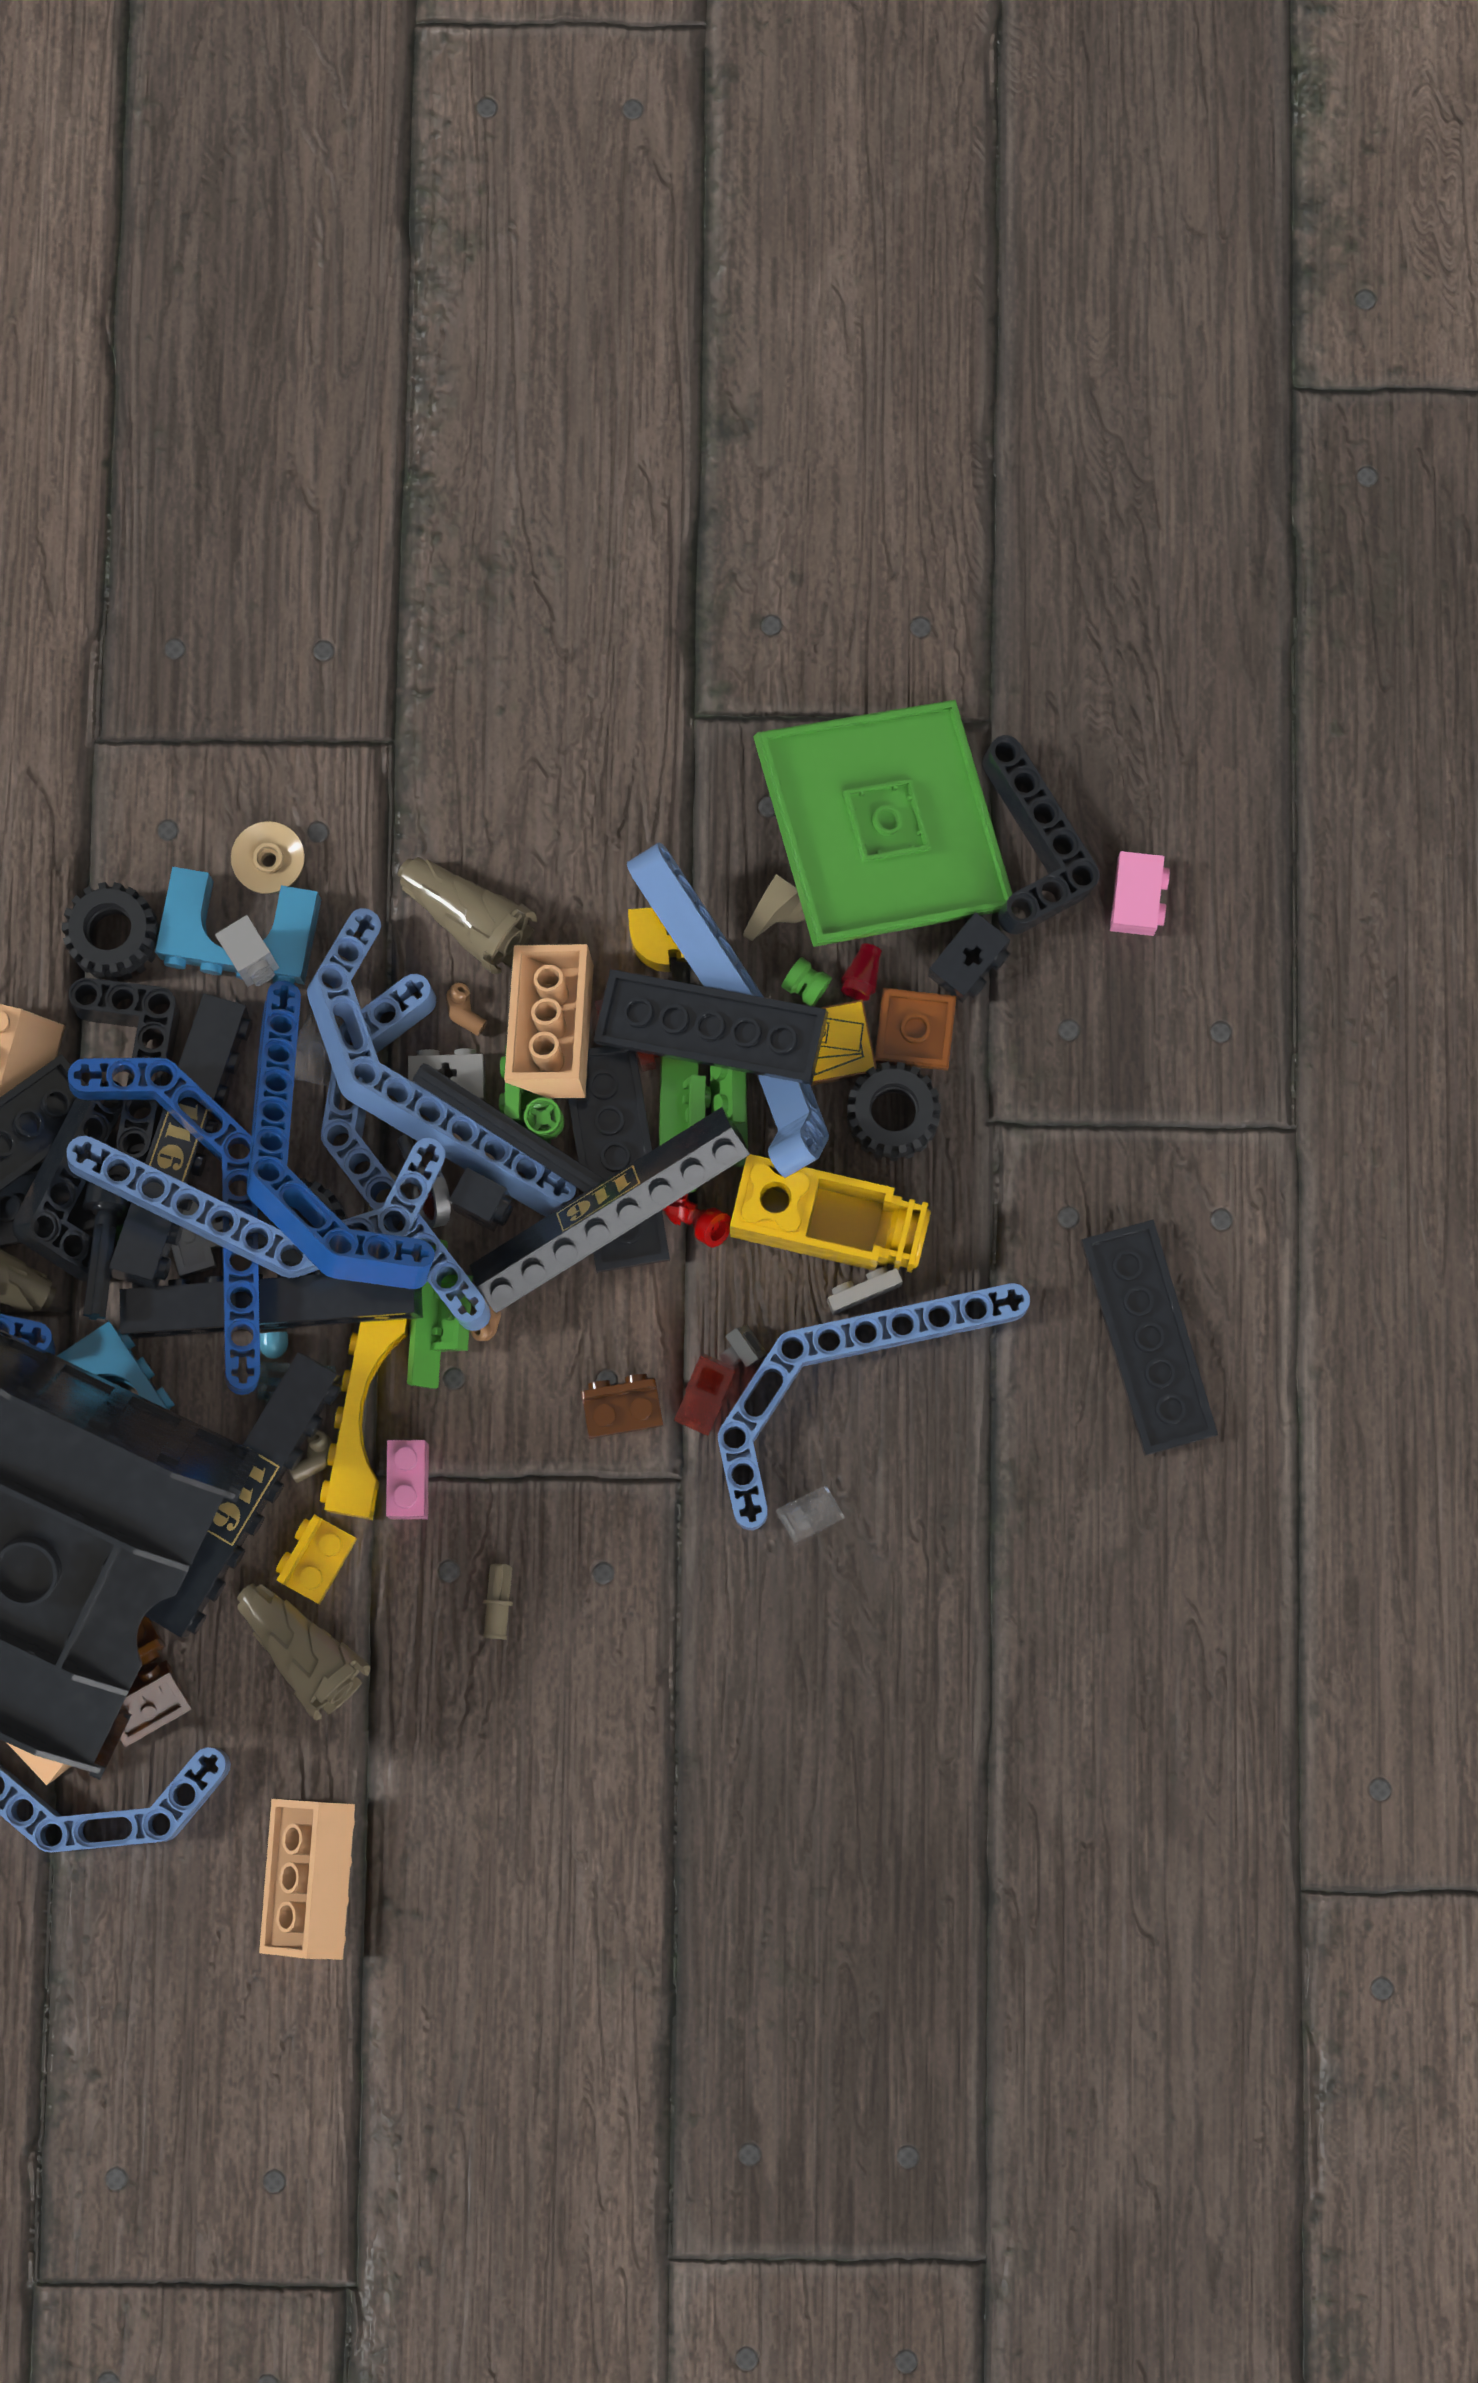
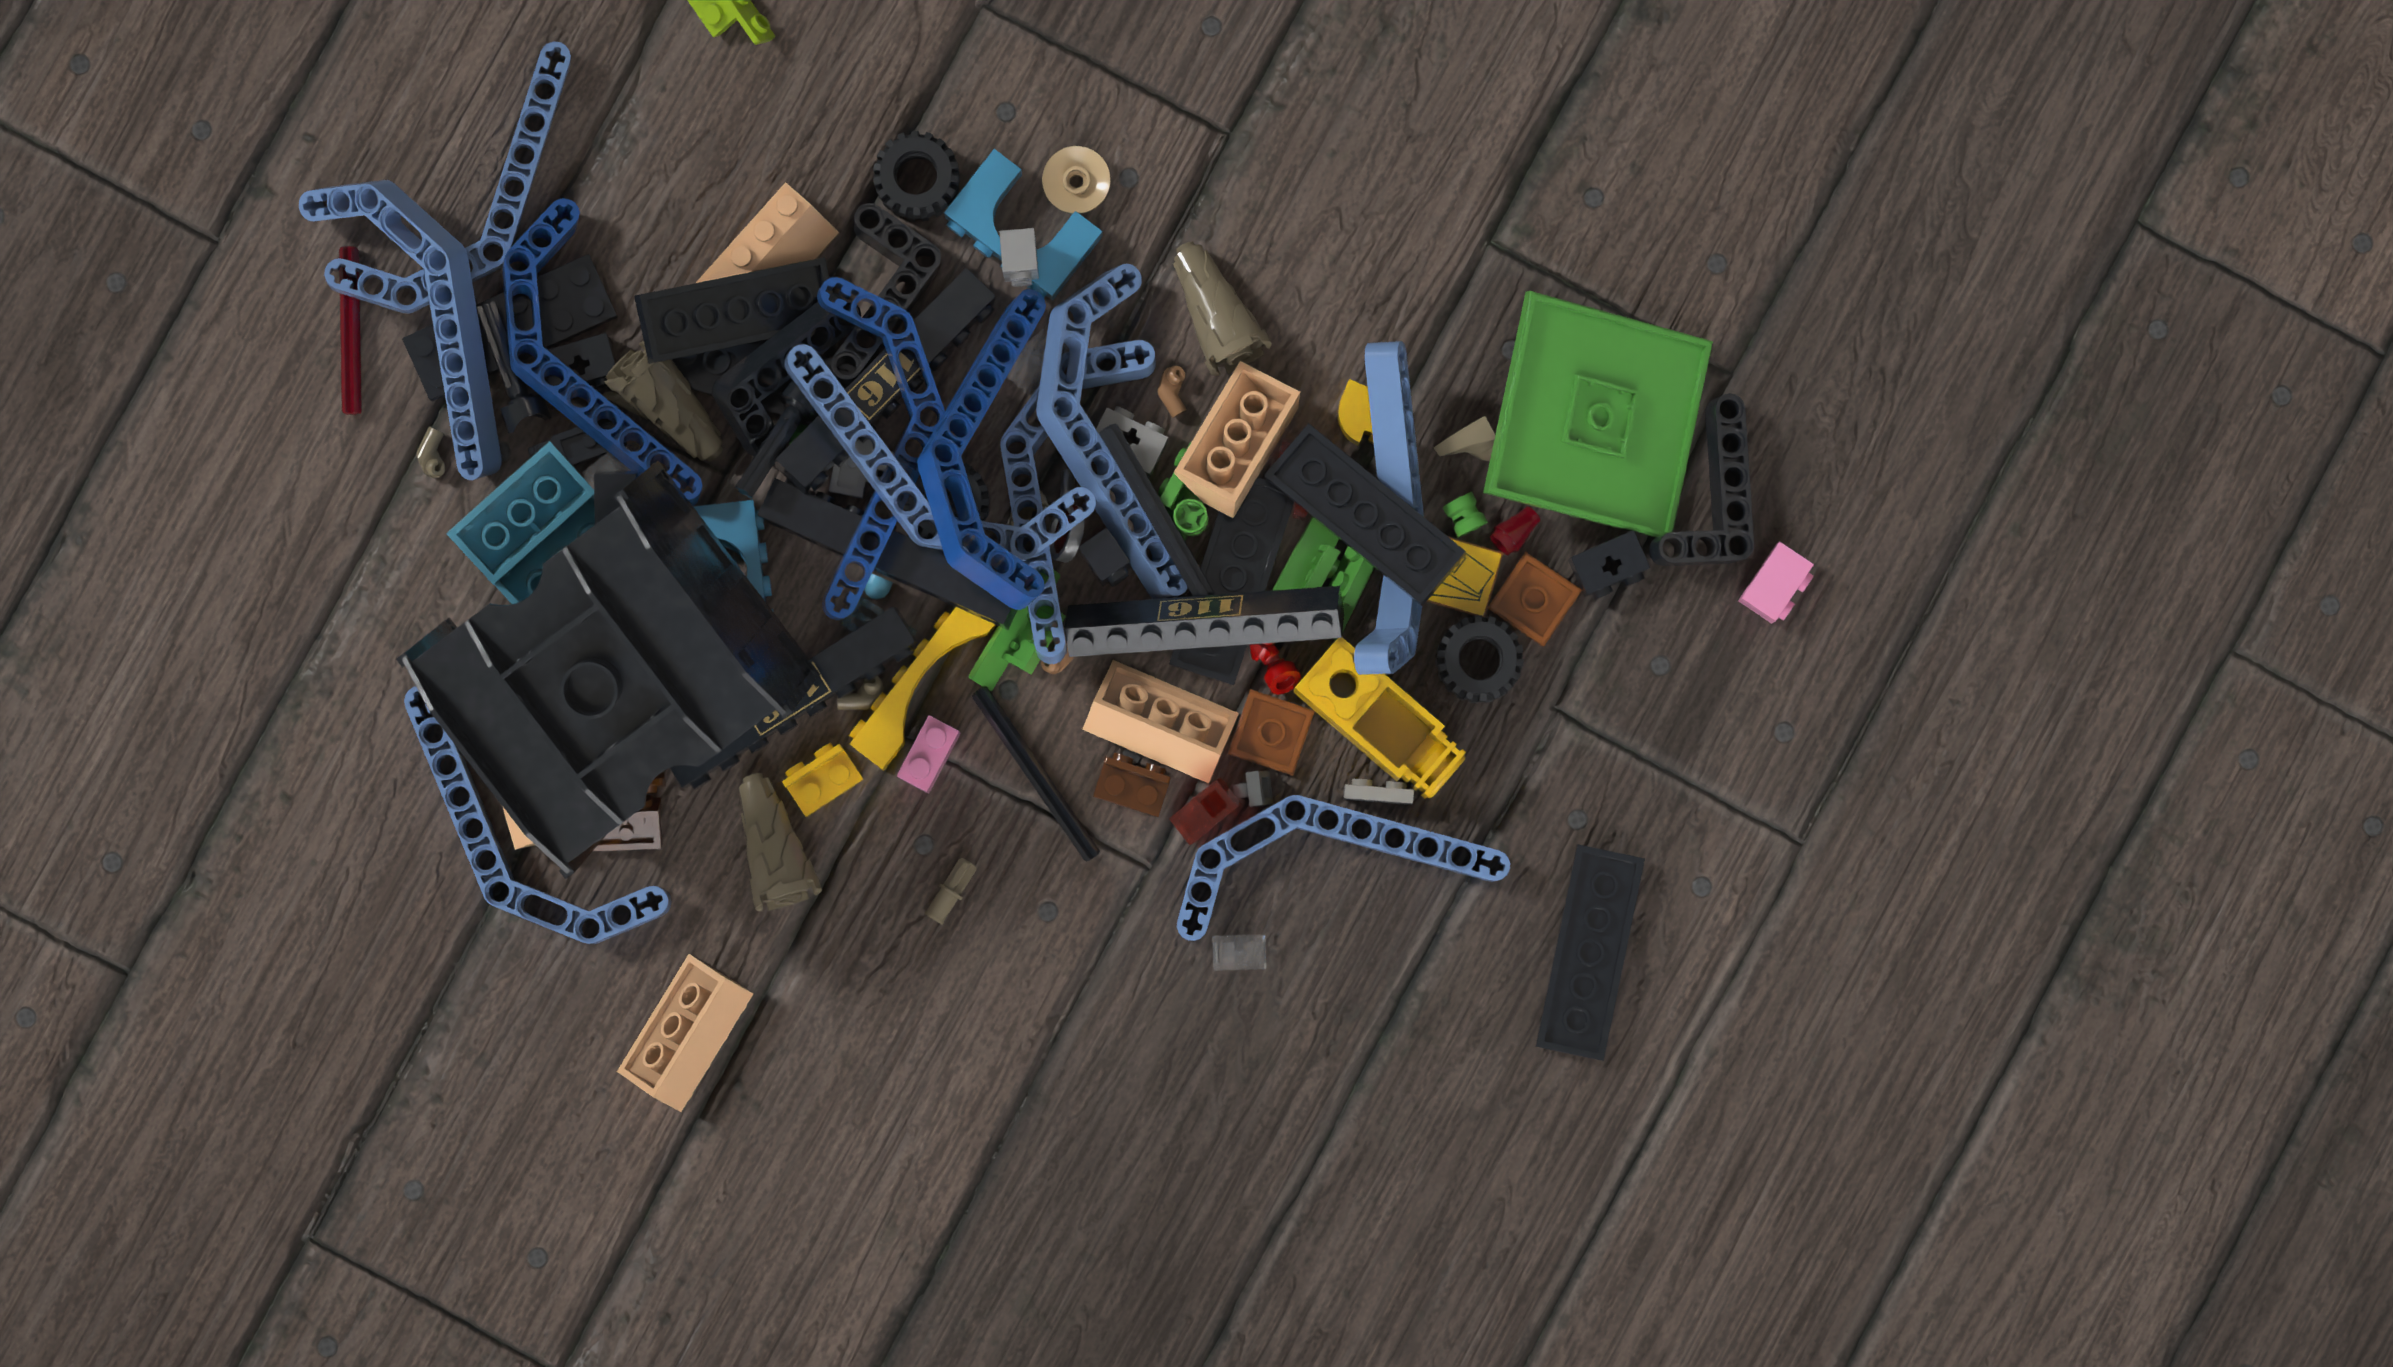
camera: 20 degrees right, 5 degrees up
(522, 1445) = (1035, 773): none -> black axle
(616, 1331) = (1160, 721): none -> light nougat slope
(730, 1286) = (1271, 732): none -> dark orange tile

